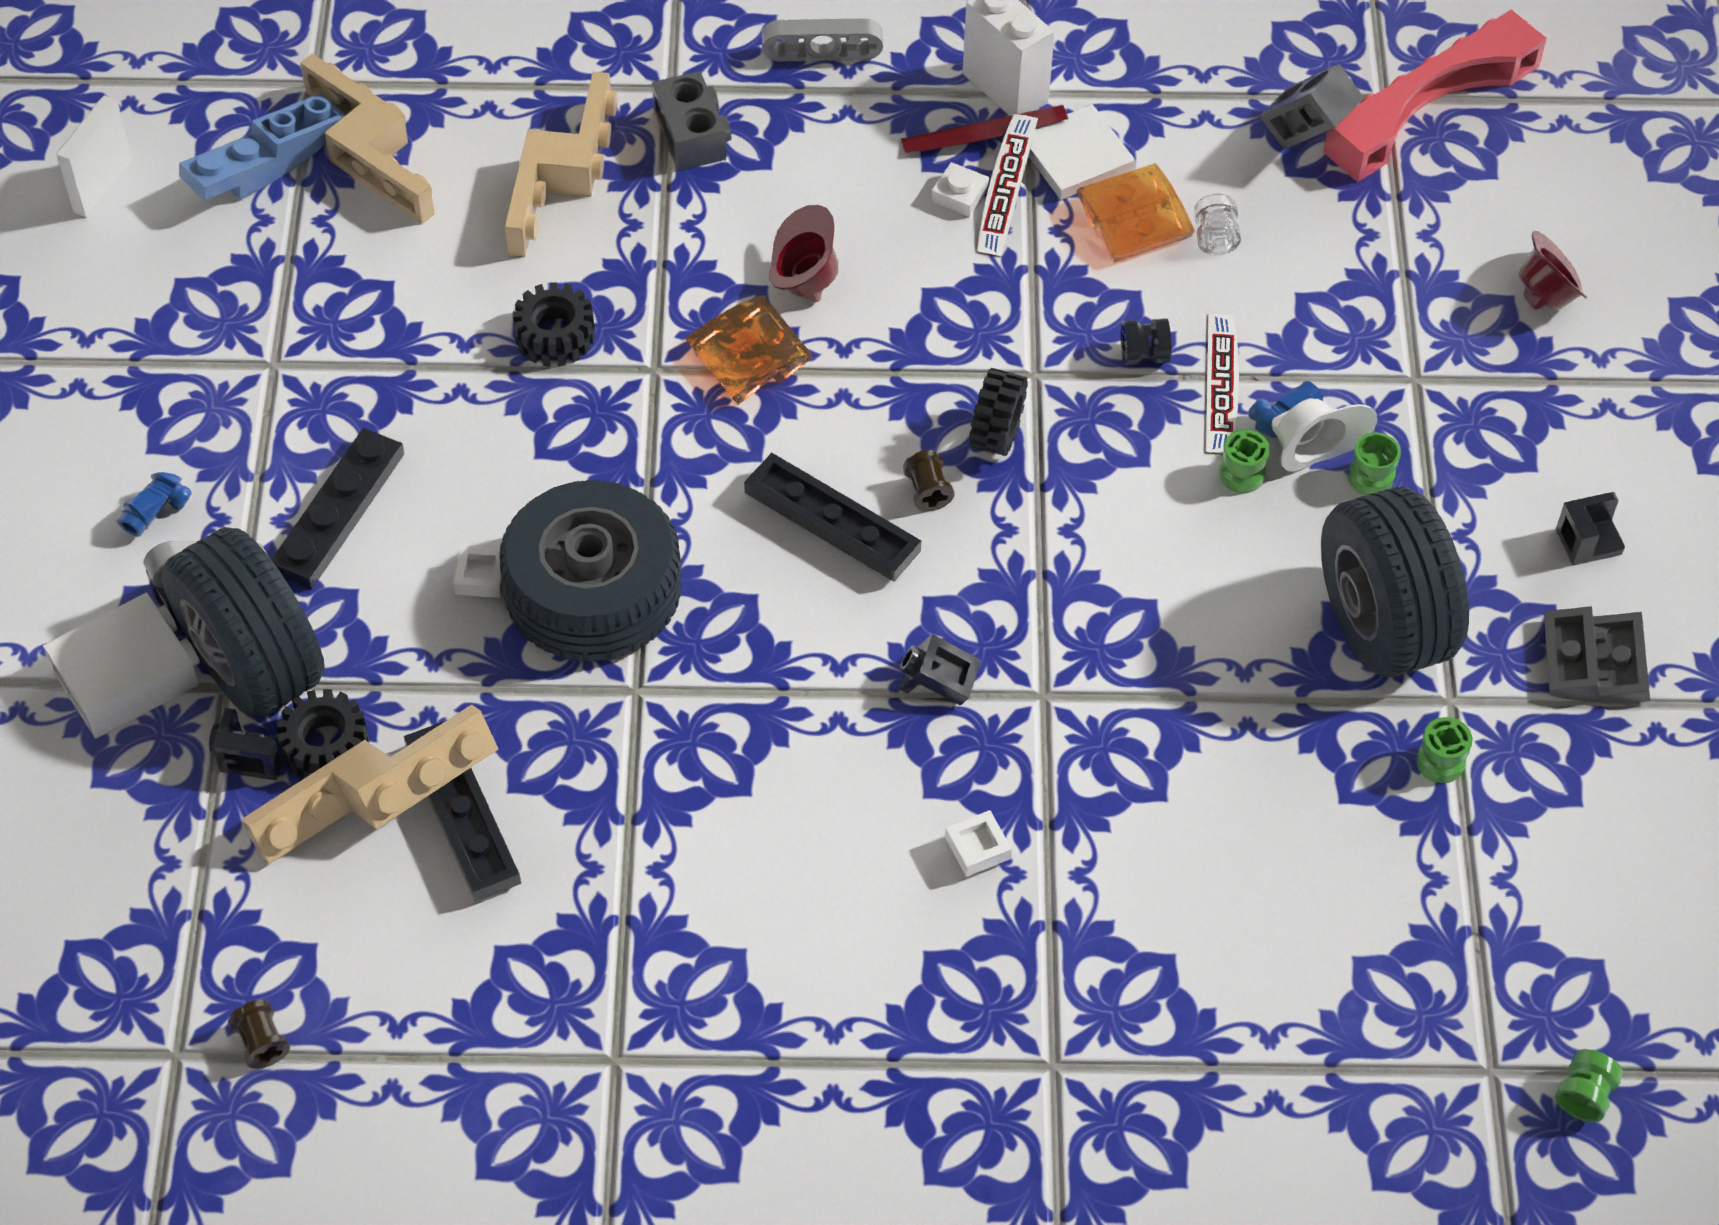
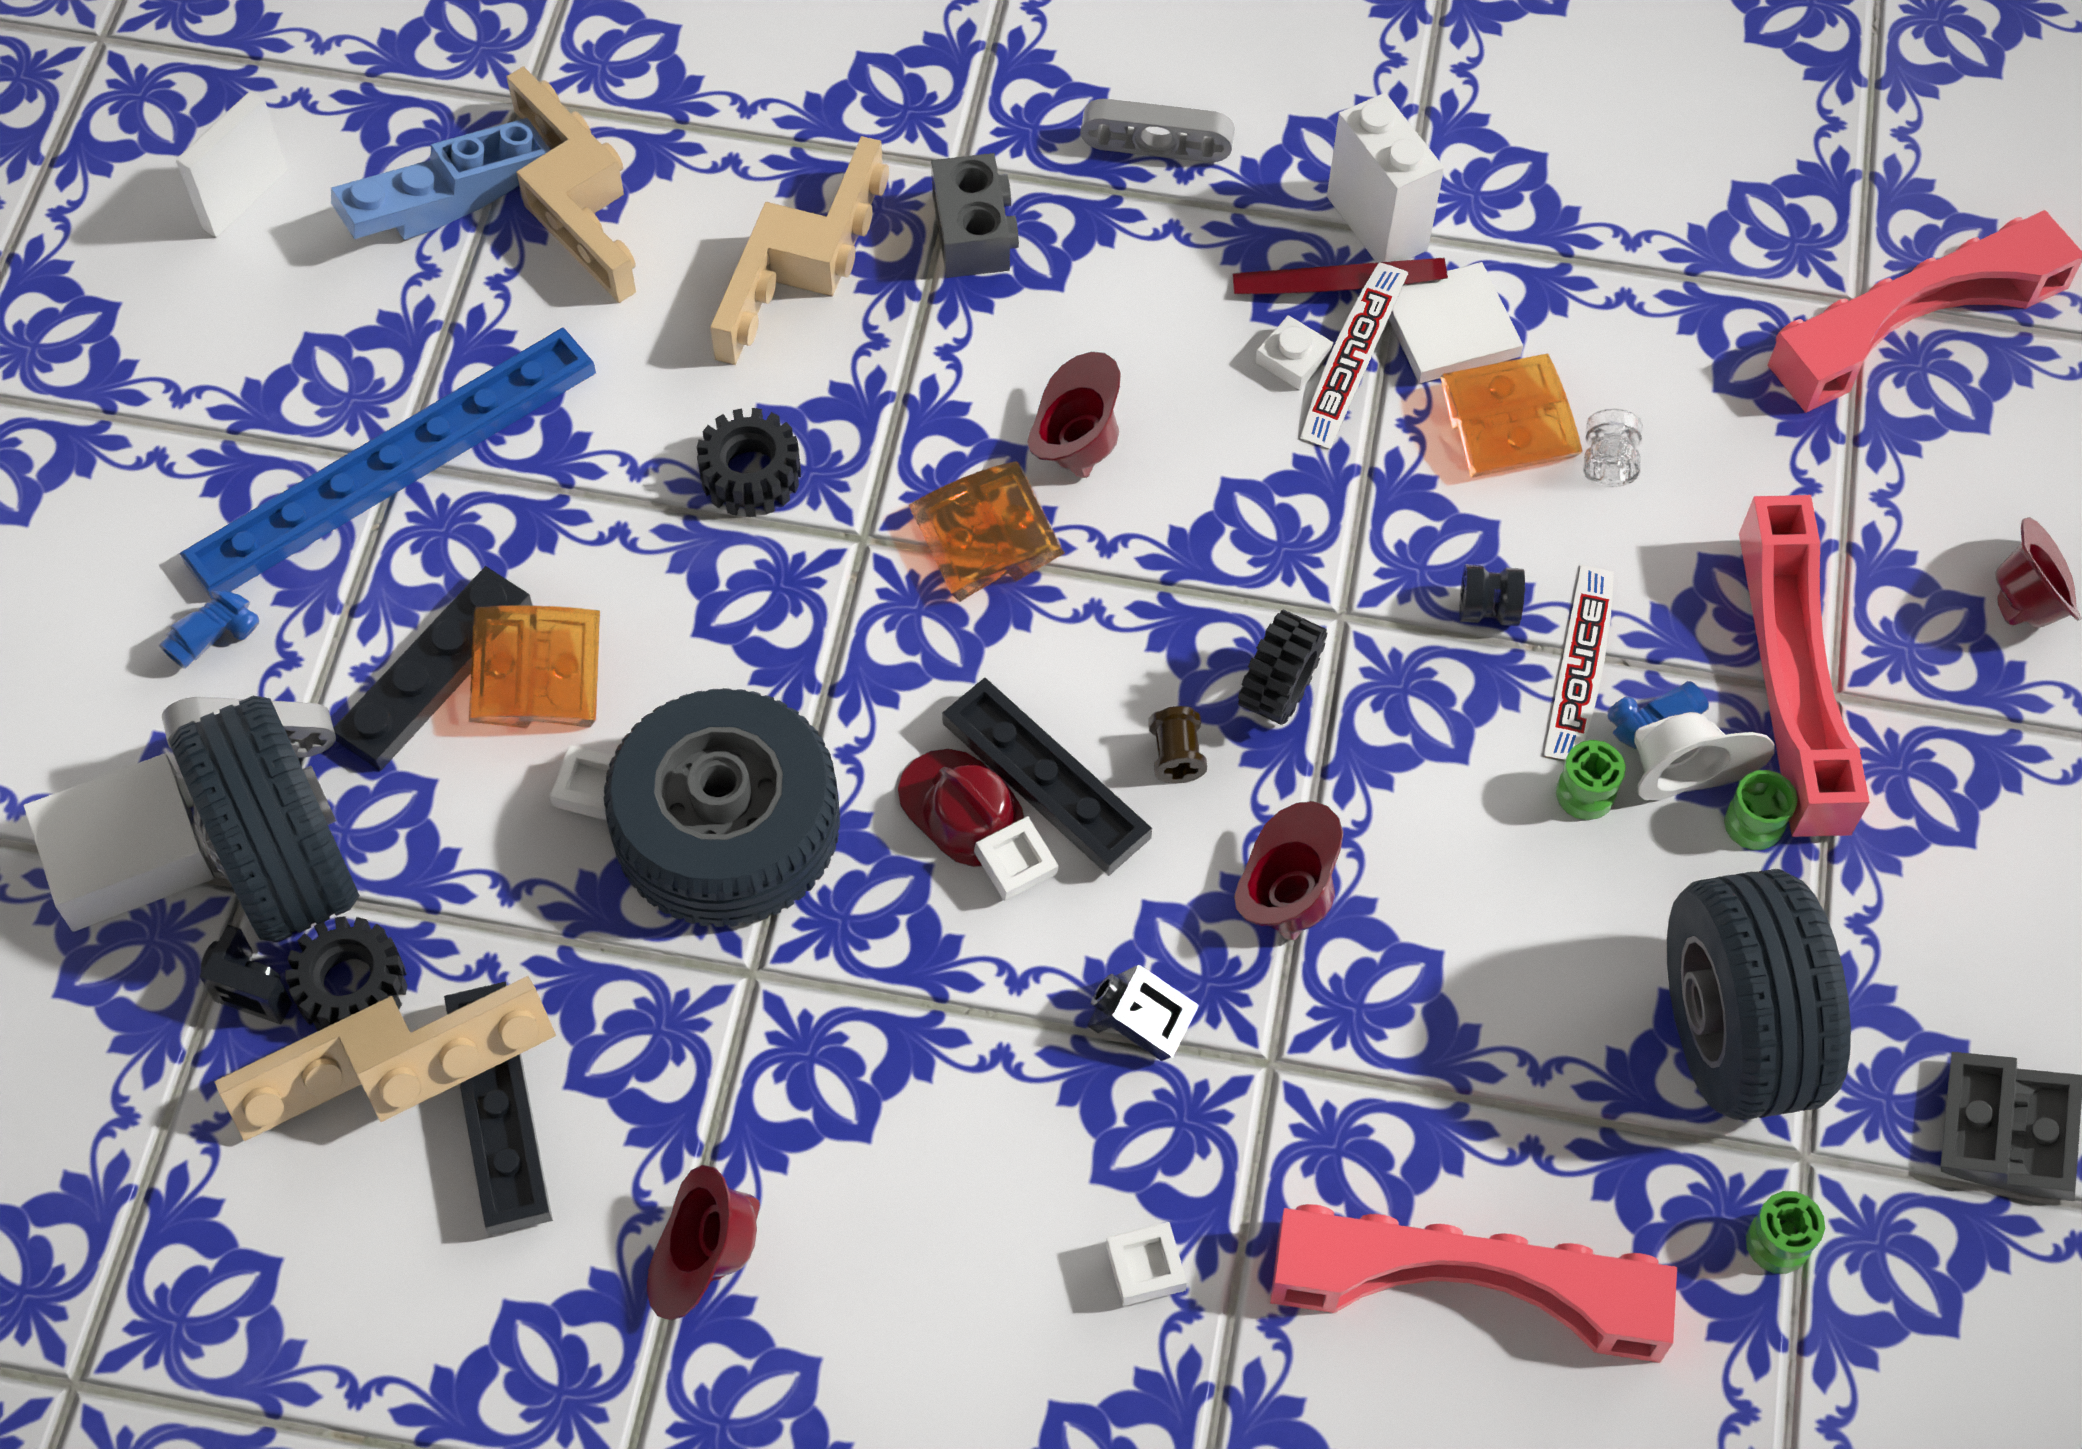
camera: 10 degrees right, 5 degrees up
(259, 1034) = (177, 1379): dark brown bush -> none
(266, 365) = (387, 463): none -> blue tile
(419, 493) = (534, 665): none -> clear orange slope
(641, 876) = (702, 1242): none -> dark red piece
(772, 549) = (956, 802): none -> dark red piece
(822, 578) = (1016, 858): none -> white plate
(1033, 553) = (1292, 870): none -> dark red piece
(1312, 106) = (1762, 307): dark grey brick -> none
(1323, 816) = (1607, 1301): none -> coral arch
(1403, 409) = (1810, 737): none -> coral arch
(1588, 529) = (2032, 946): black panel -> none

